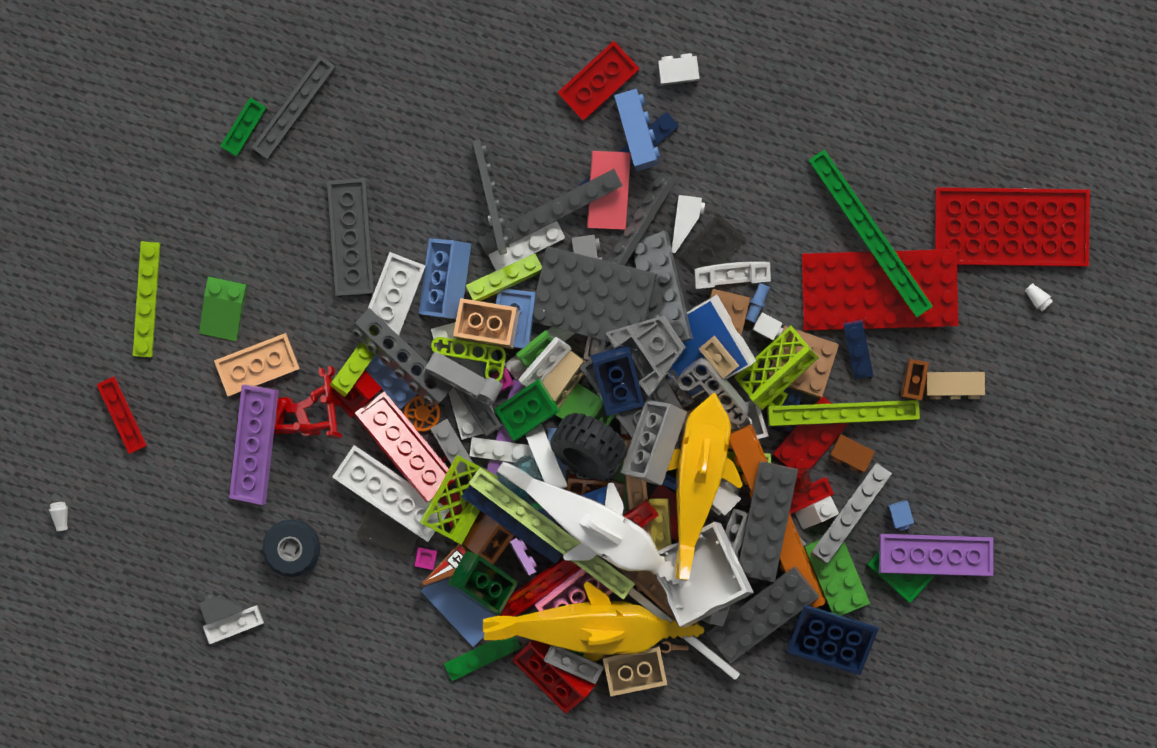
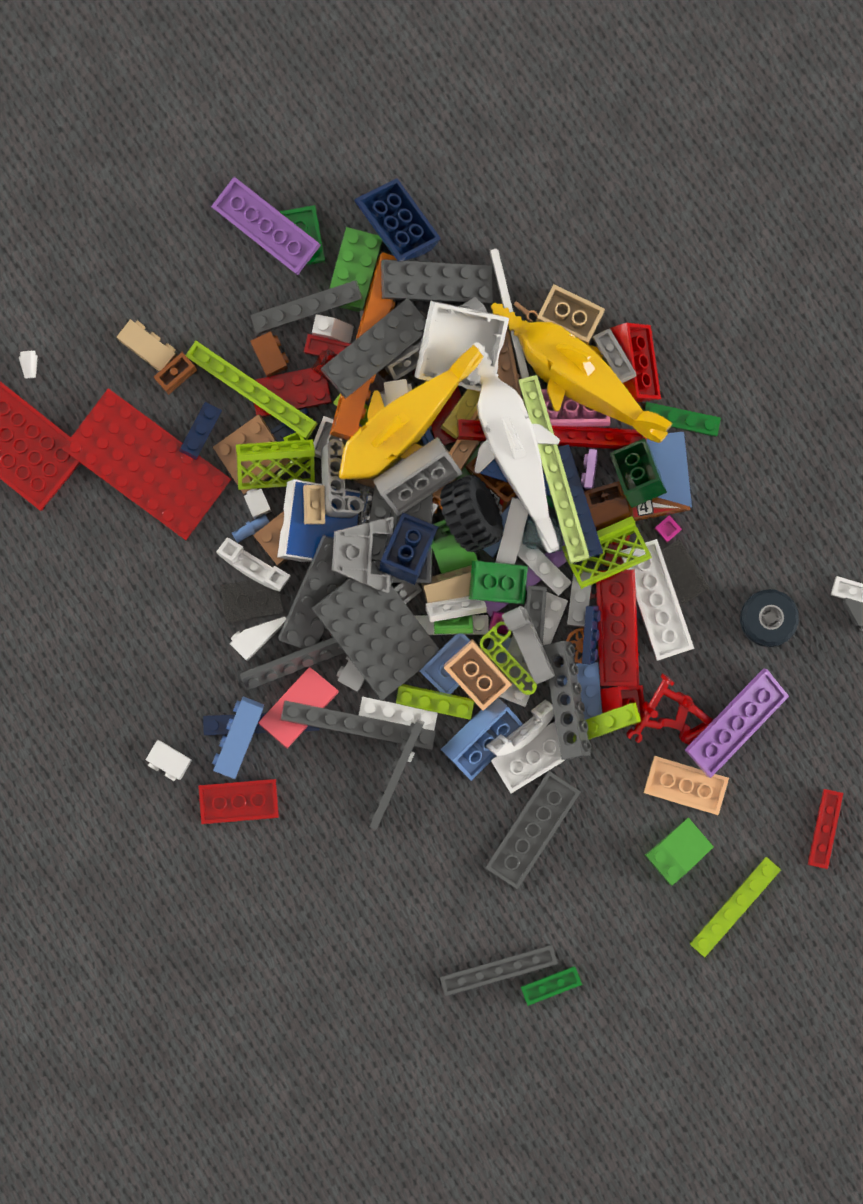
camera: 145 degrees left, 5 degrees down
(414, 306) = (524, 734): none -> white slope
(421, 425) = (591, 634): none -> dark blue plate
(870, 234) = (119, 512): green plate -> none
(901, 515) = (268, 278): medium blue brick -> none

